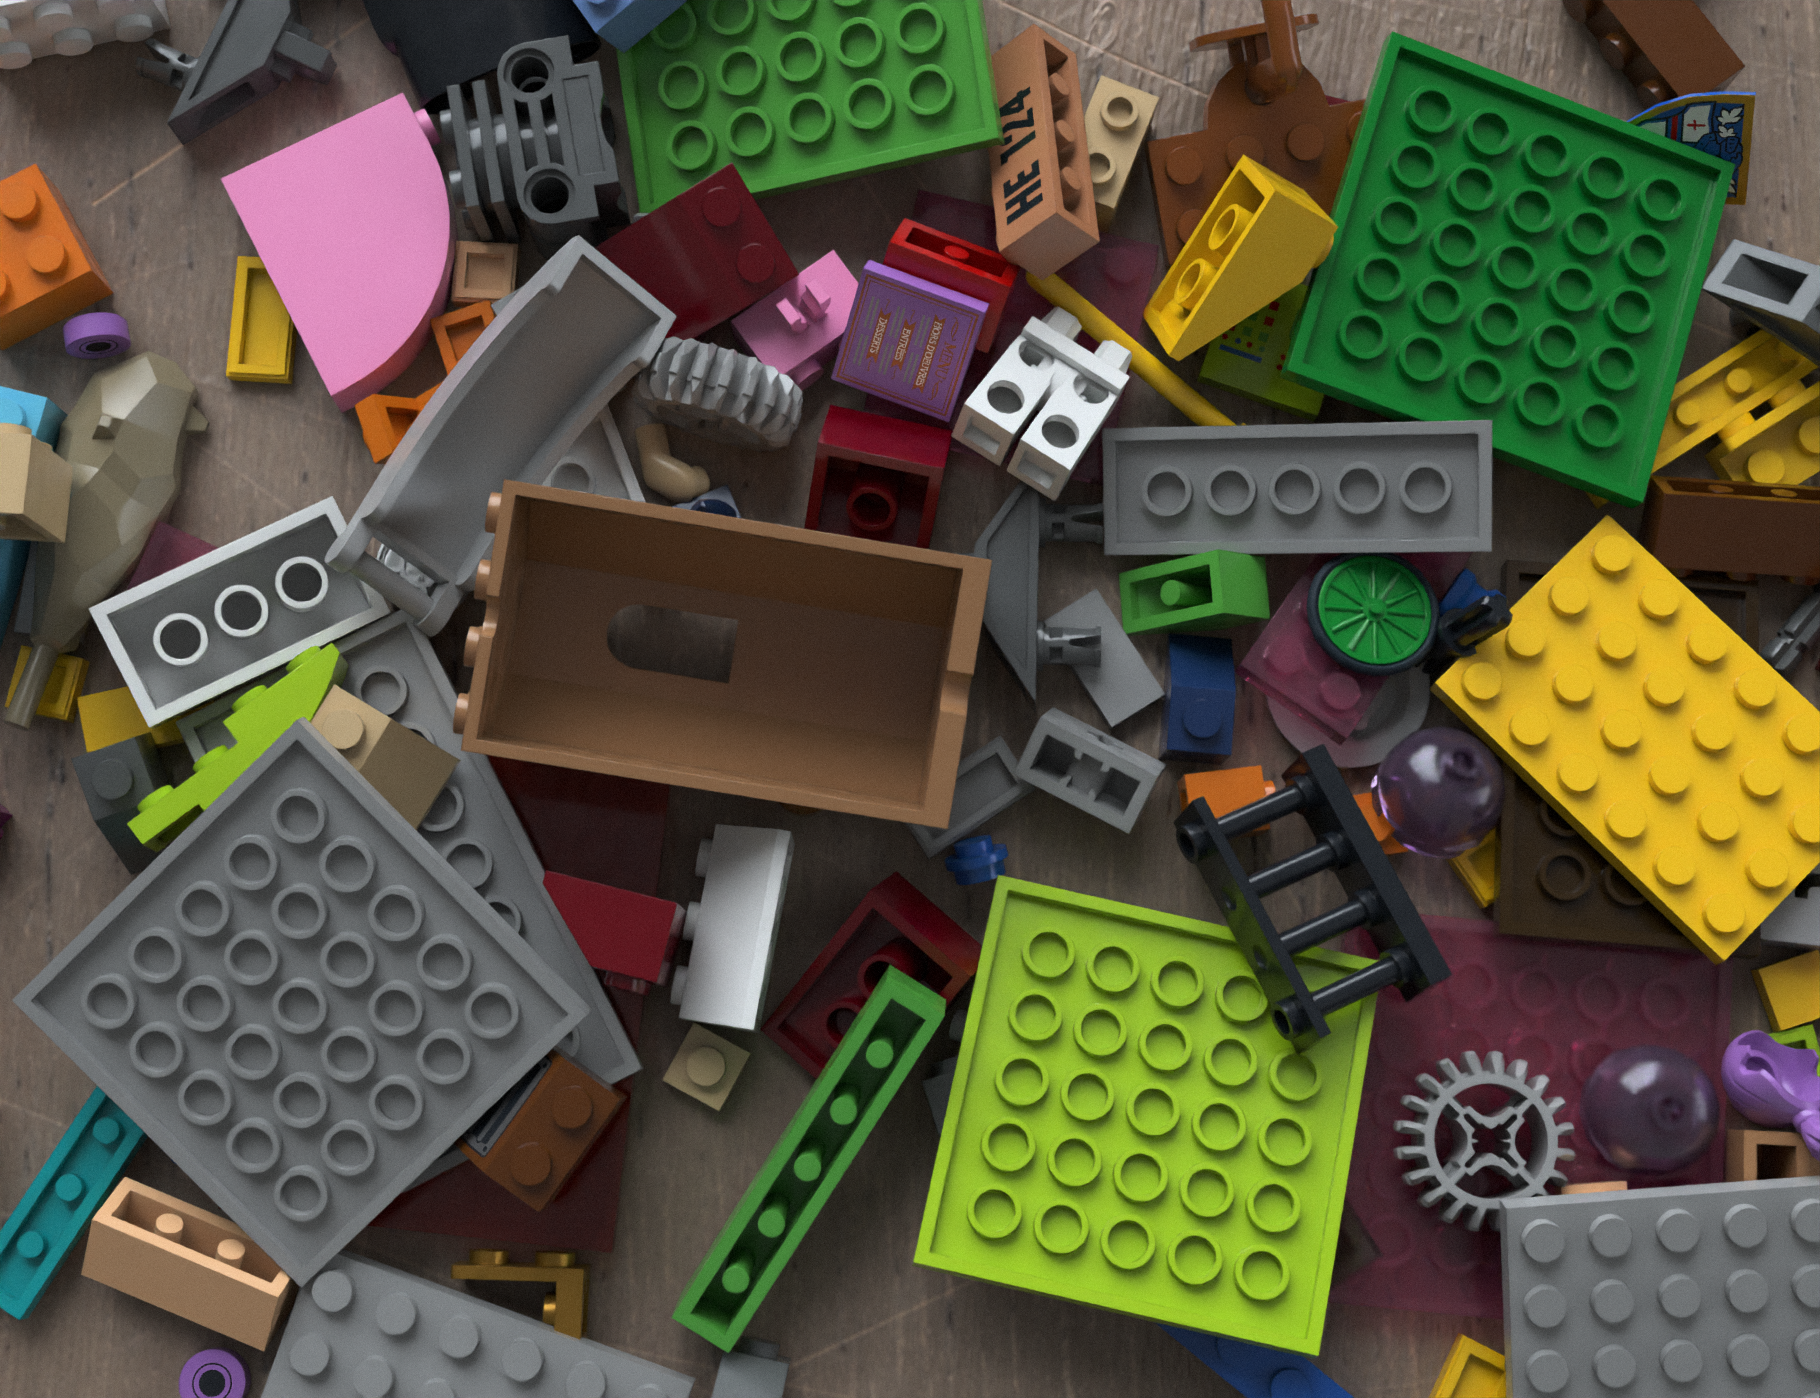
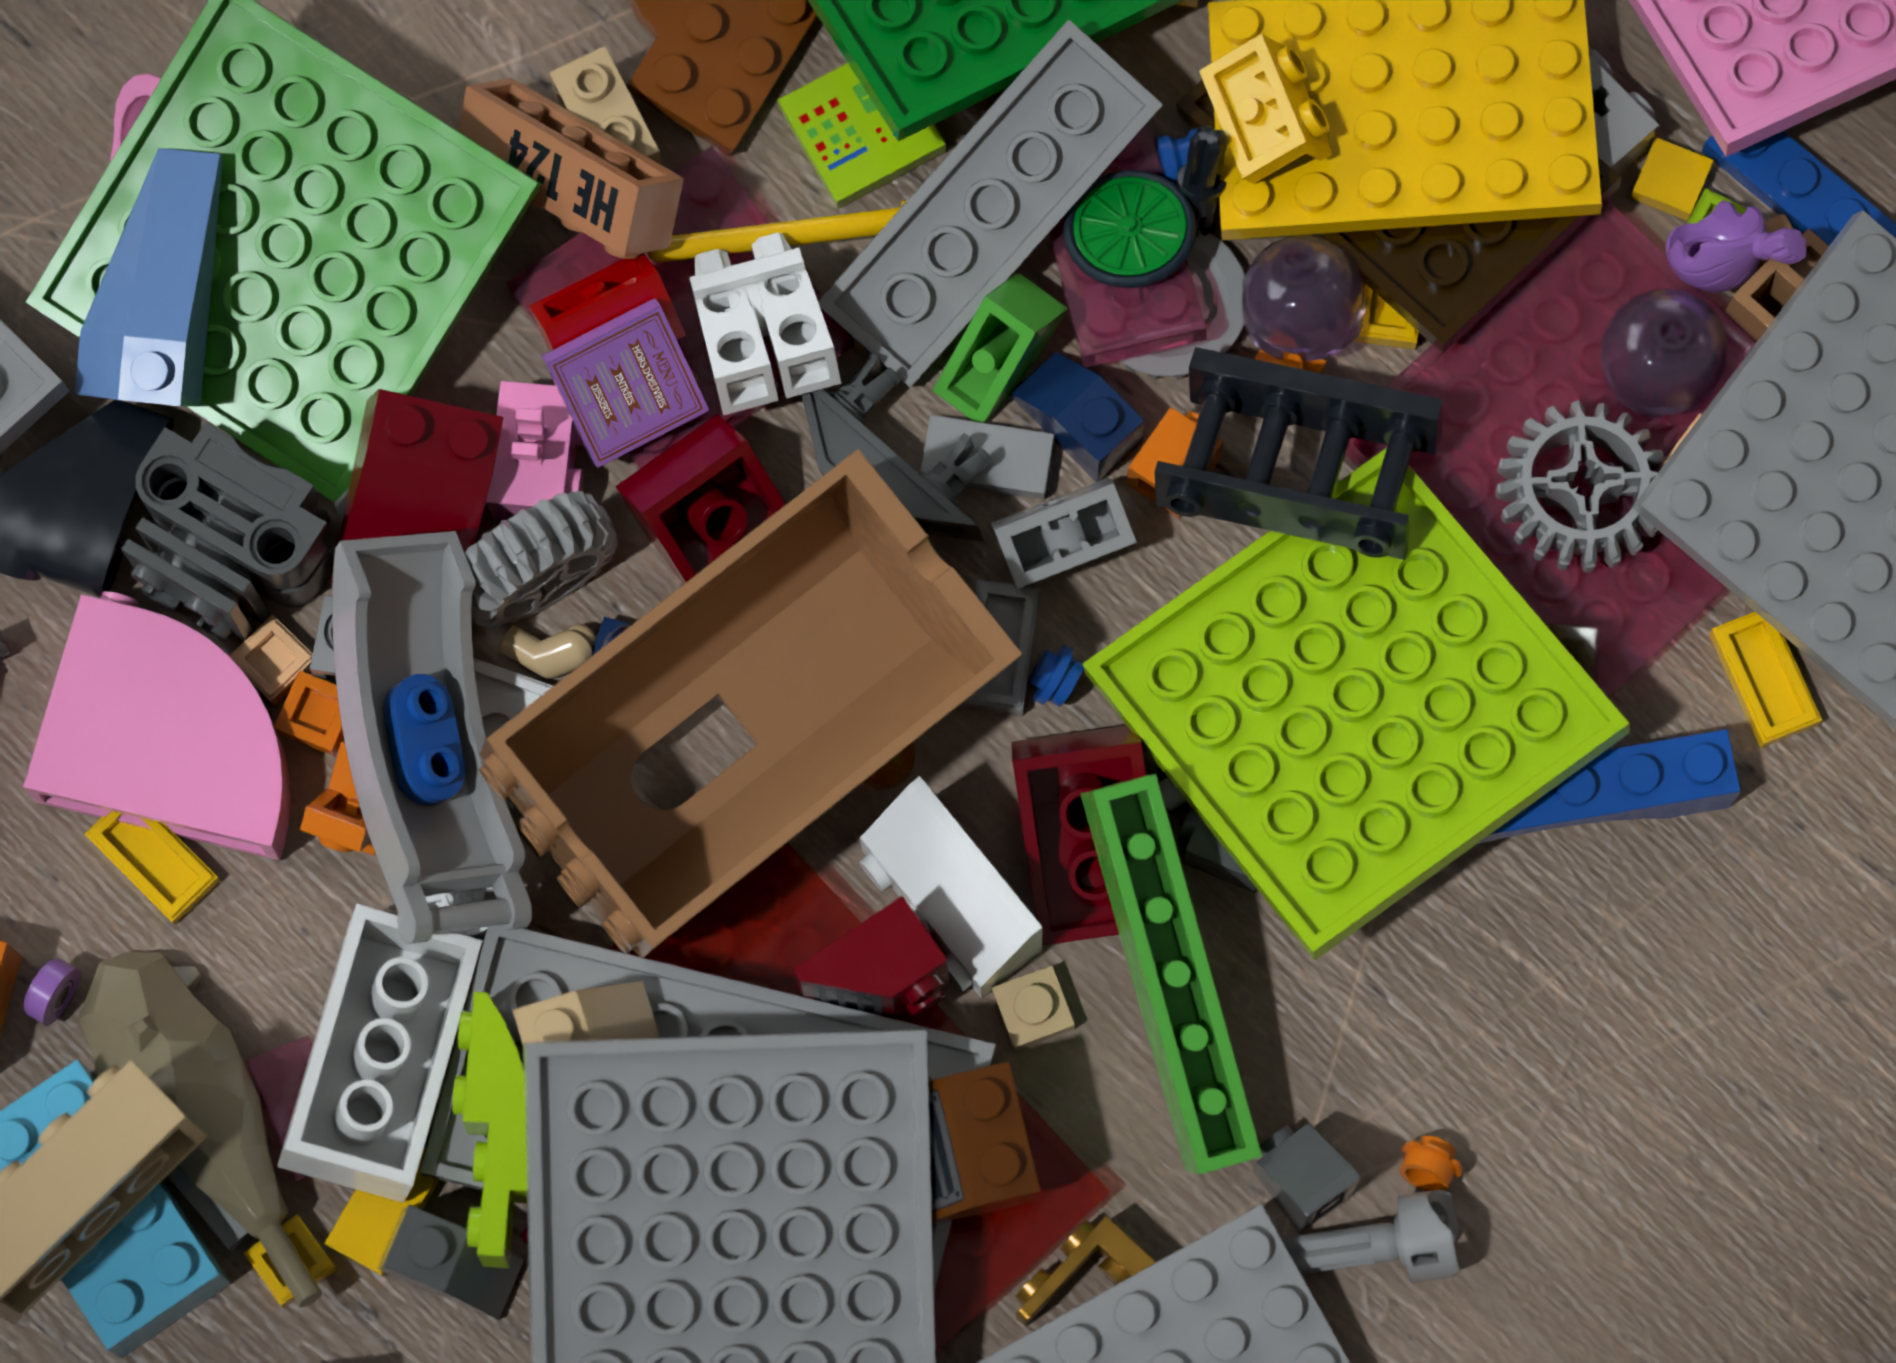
camera: 40 degrees left, 5 degrees down
(496, 431) = (421, 736): none -> blue plate
(1241, 256) = (781, 96): yellow slope -> none
(1562, 632) = (1265, 107): none -> yellow bracket

